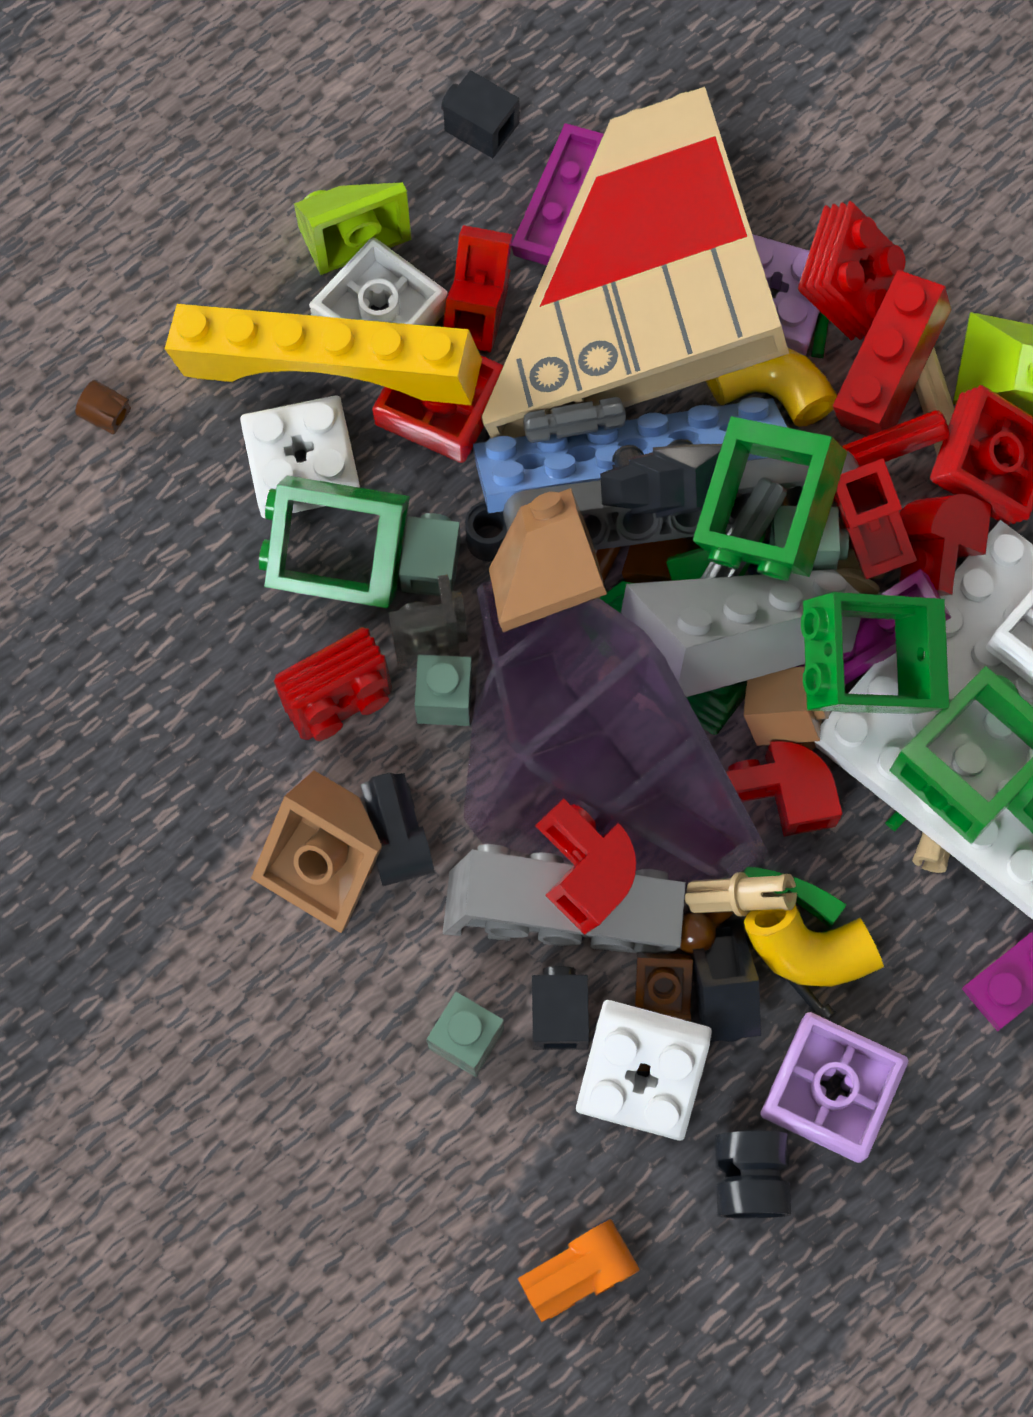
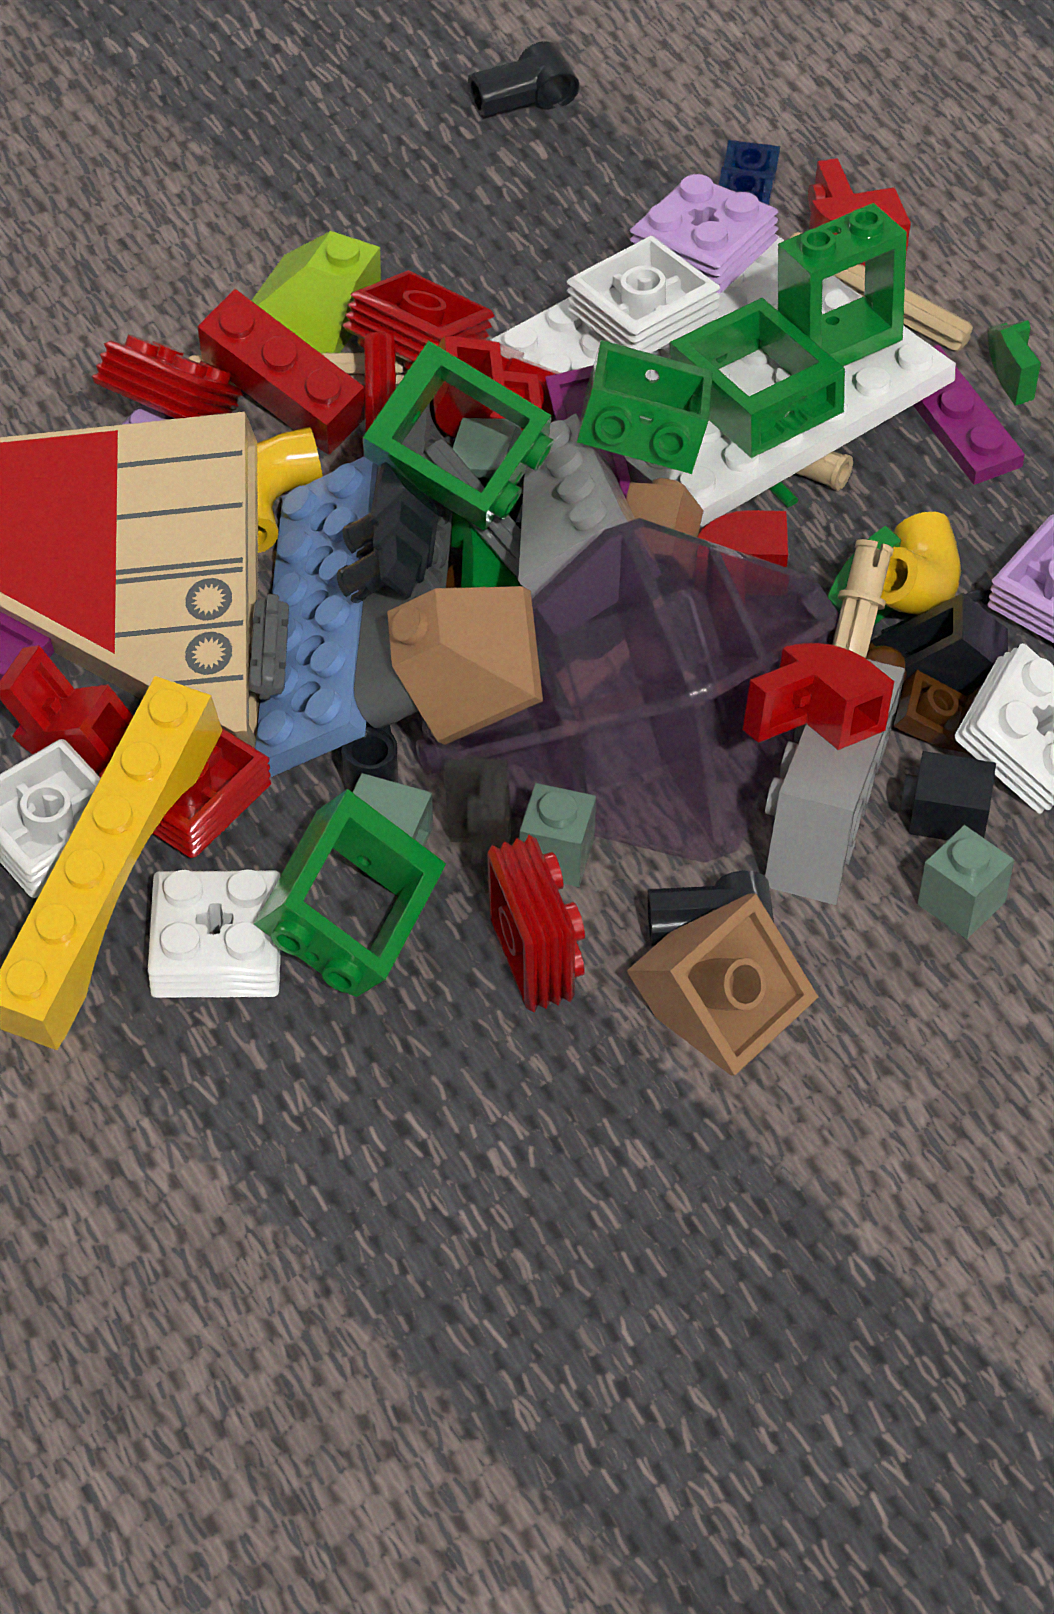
camera: 80 degrees left, 20 degrees down
(102, 407) = (78, 1131): reddish brown hose -> none

